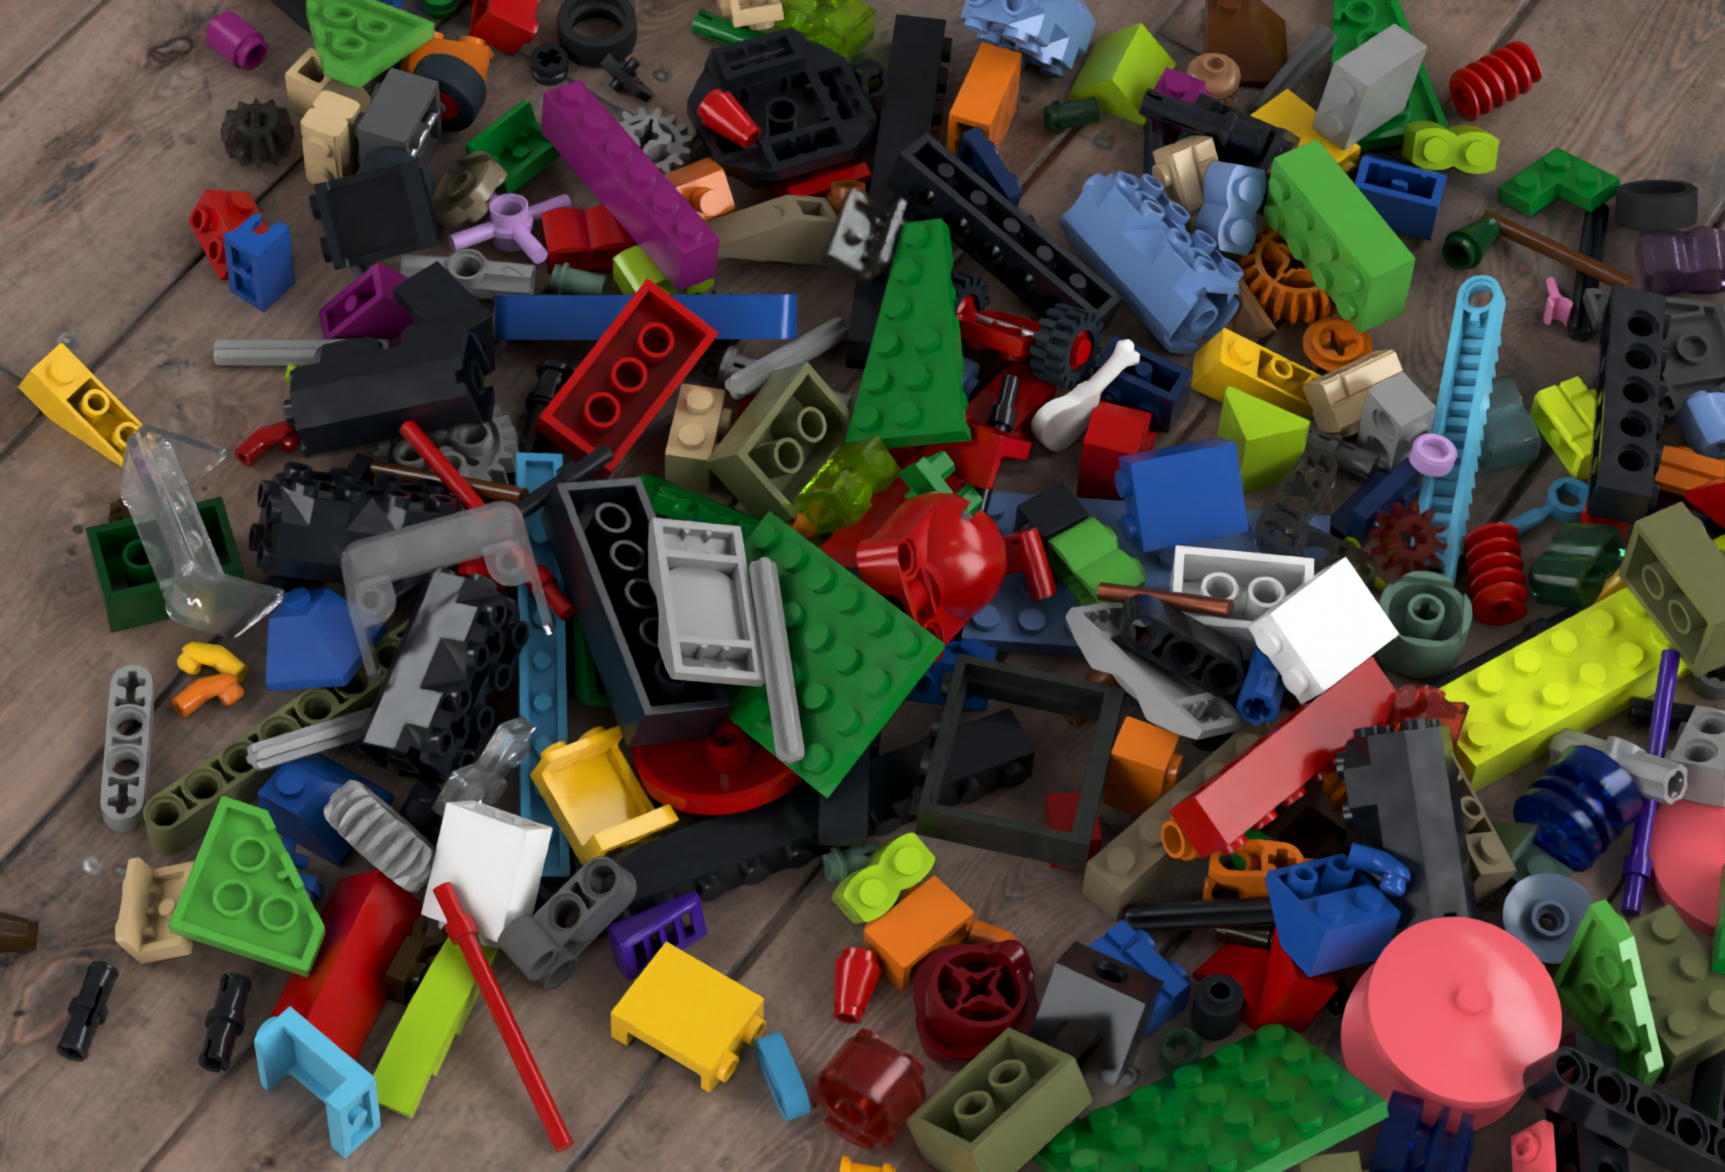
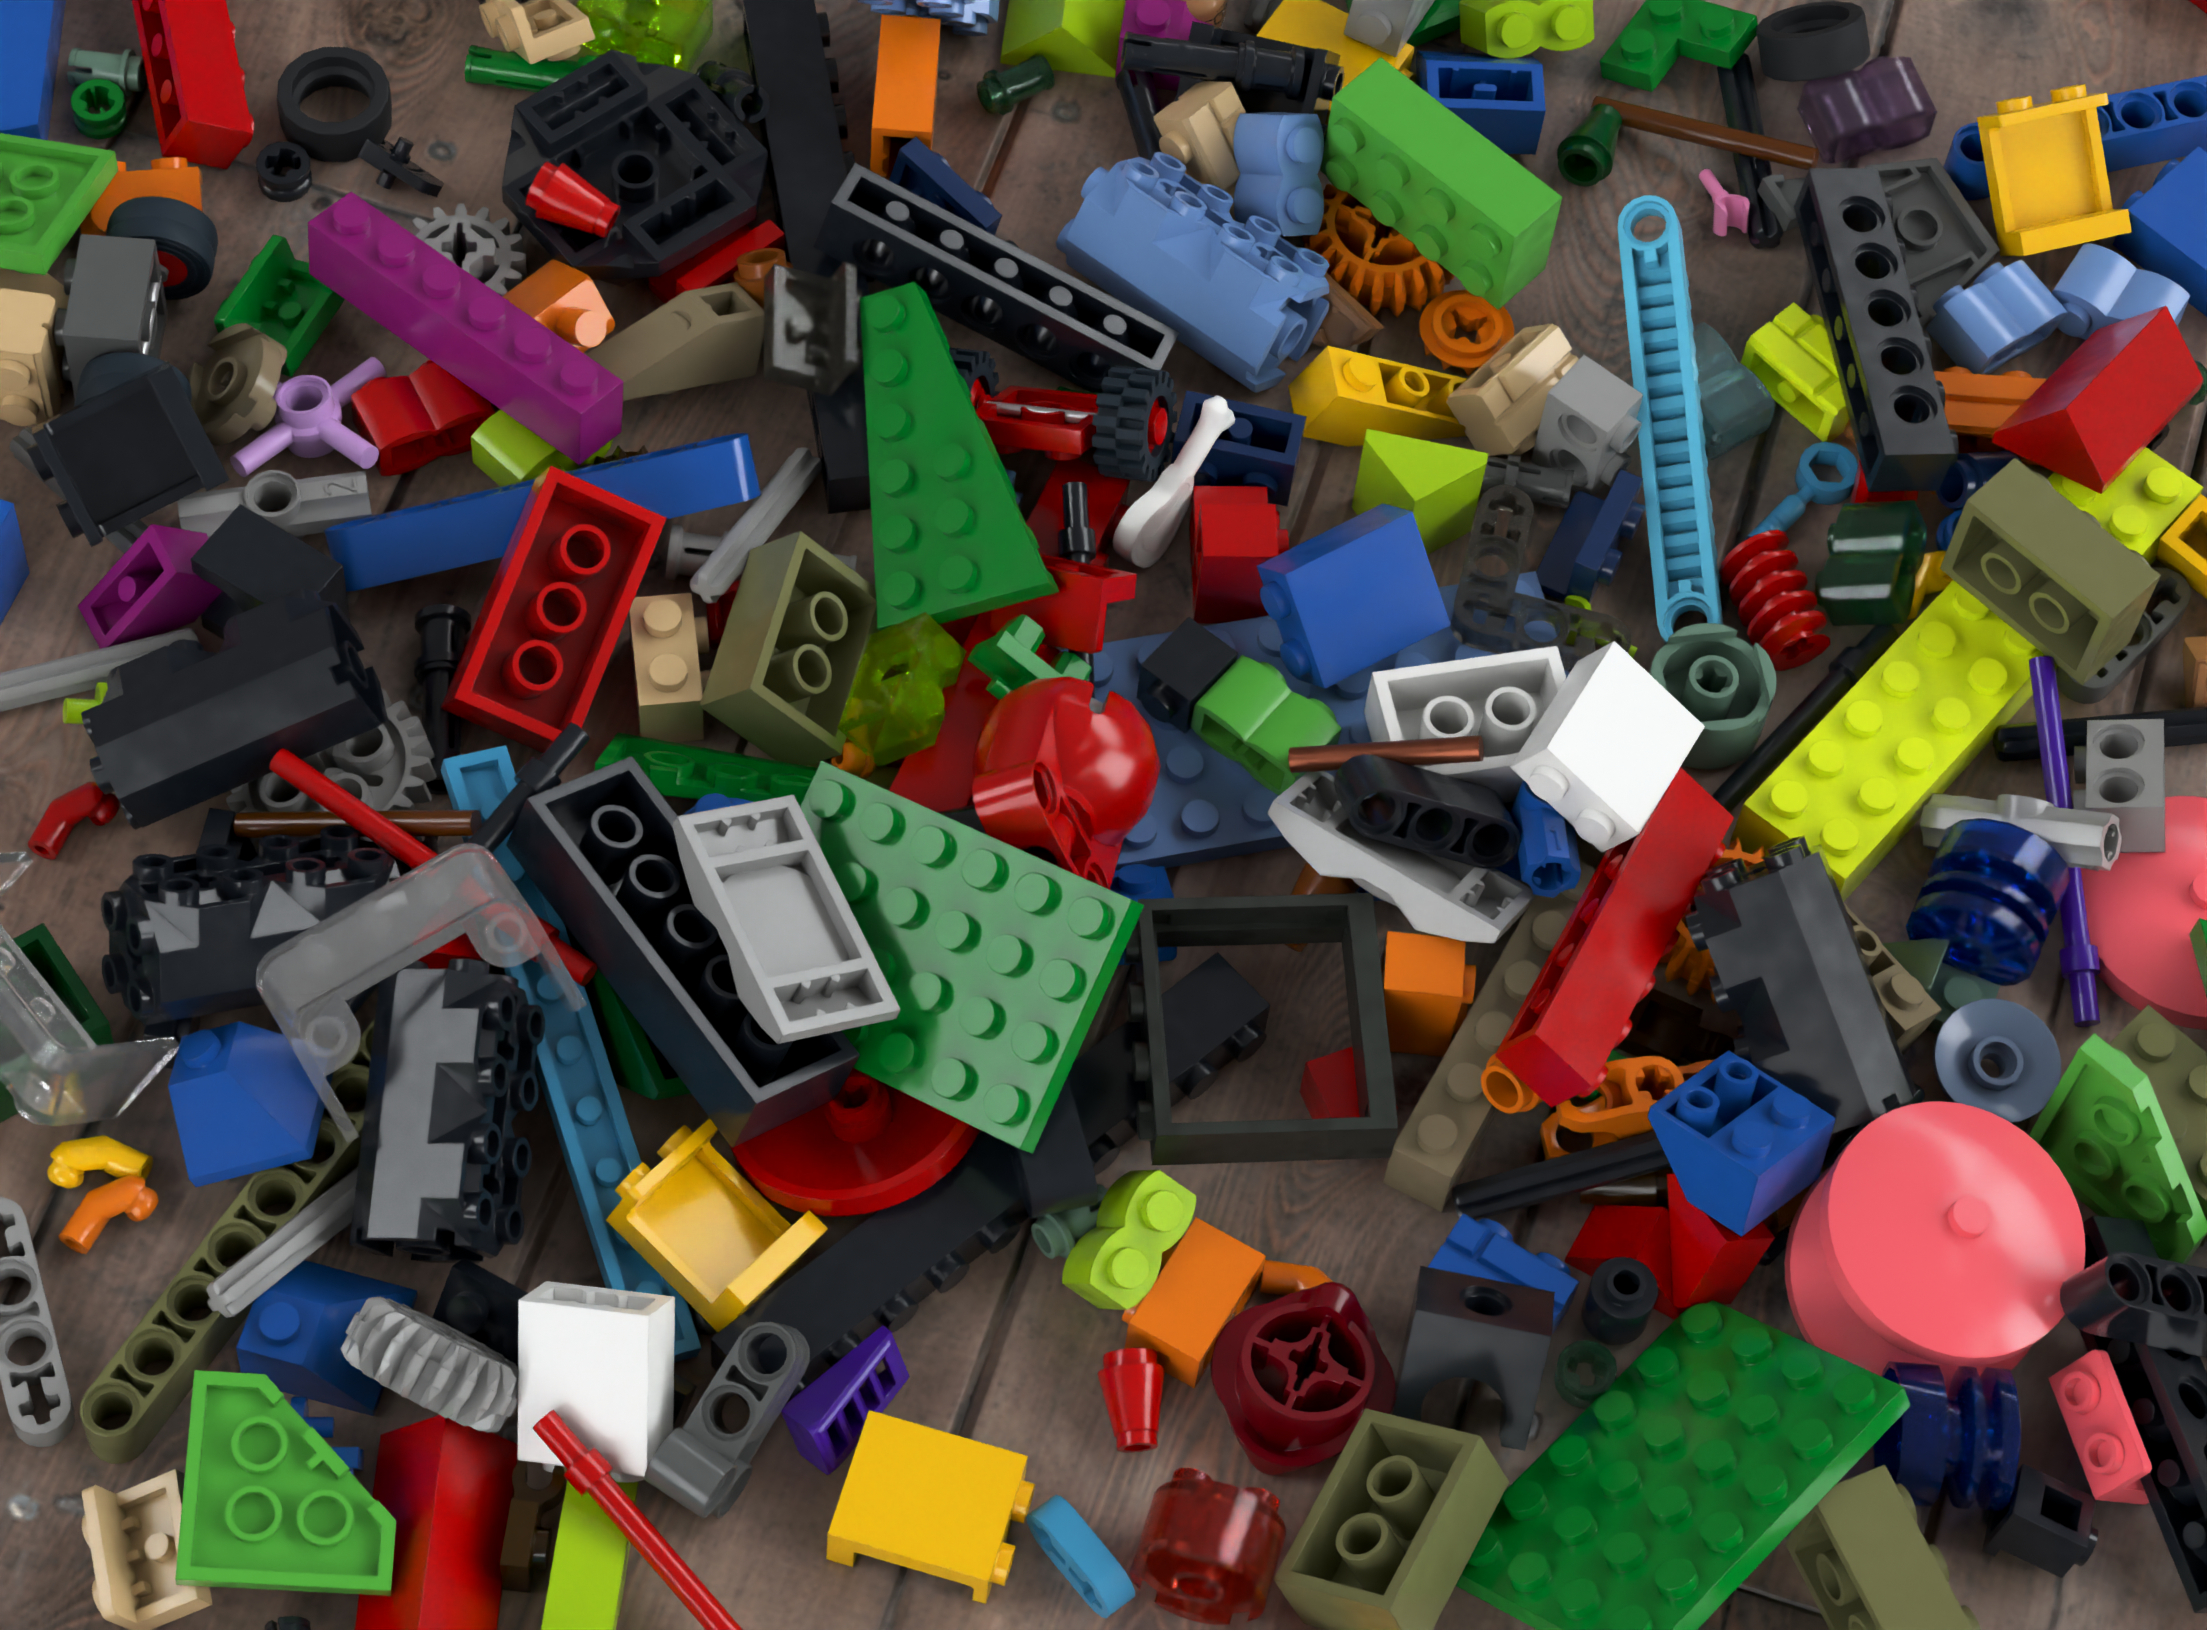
camera: 20 degrees left, 5 degrees up
(486, 778) = (545, 1241): clear plate -> none
(576, 281) = (427, 480): sand green pin -> none
(776, 661) = (906, 977): light grey axle -> none
(1027, 554) = (1181, 736): red piece -> none
(1381, 863) = (1791, 1056): blue arm -> none
(1424, 535) = (1680, 580): clear red gear -> none
(1430, 703) = (1765, 820): clear red brick -> none
(1433, 455) = (1654, 460): lavender tile -> none

